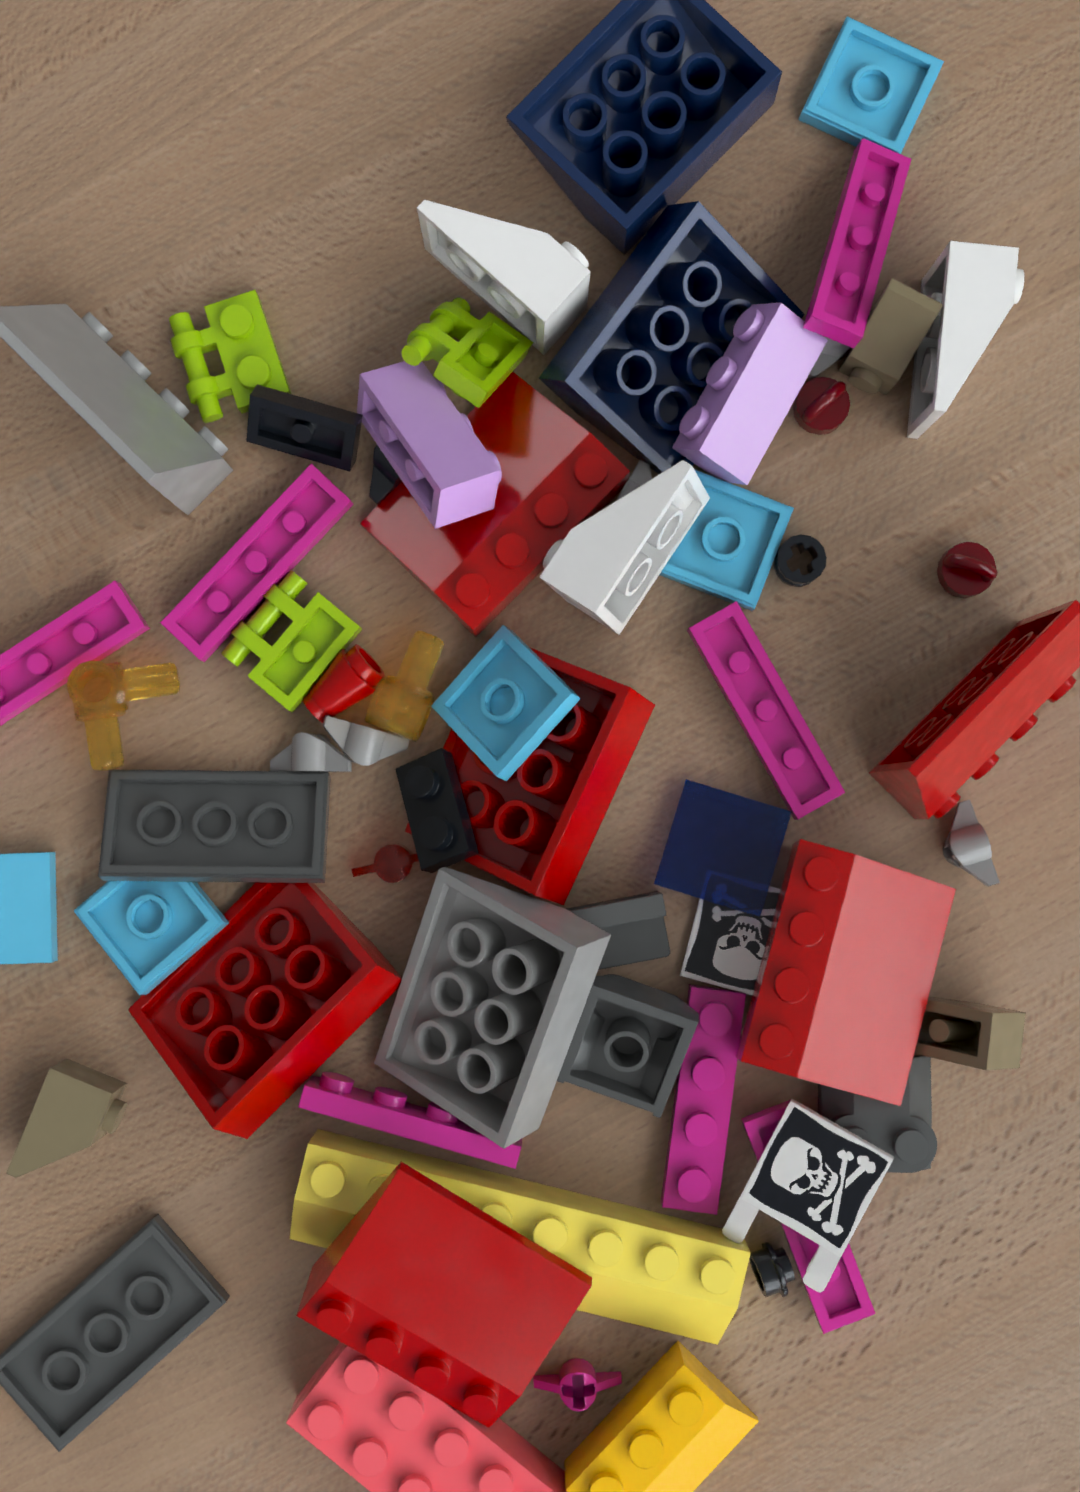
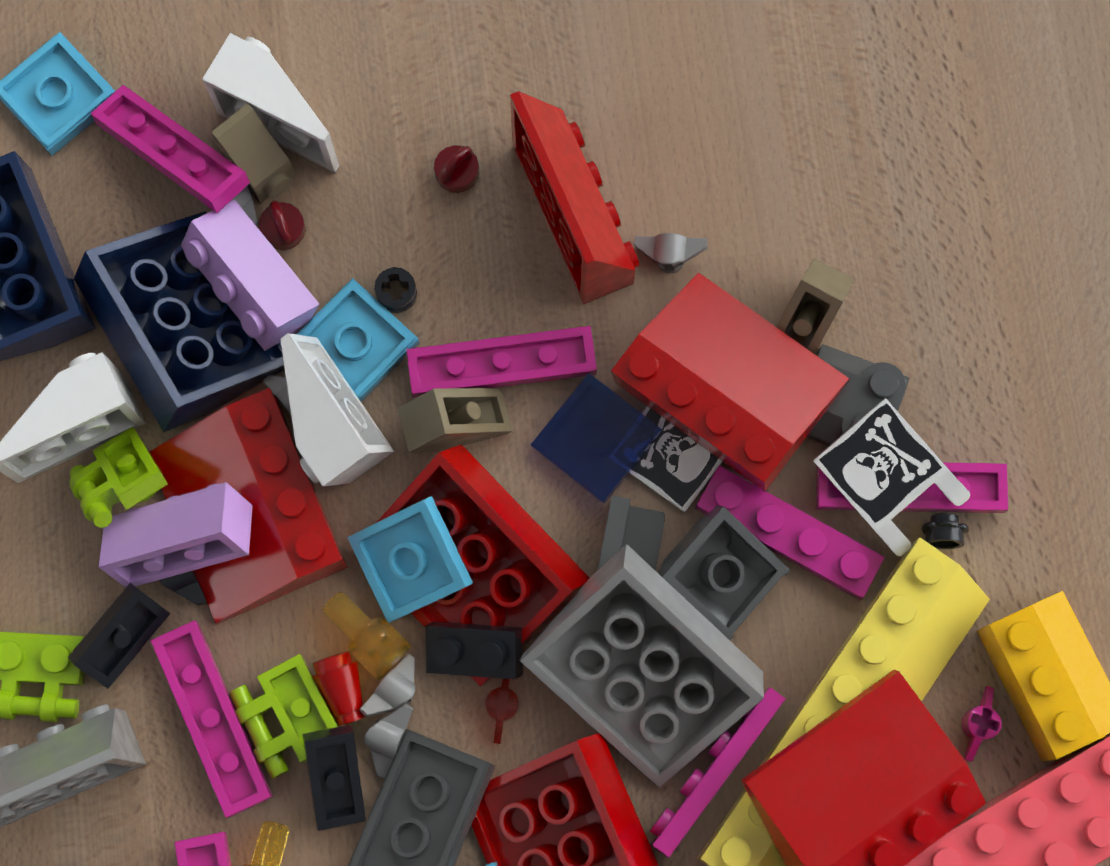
camera: 65 degrees left, 10 degrees down
(245, 718) = (334, 777): none -> black plate
(680, 685) = (453, 418): none -> dark tan slope

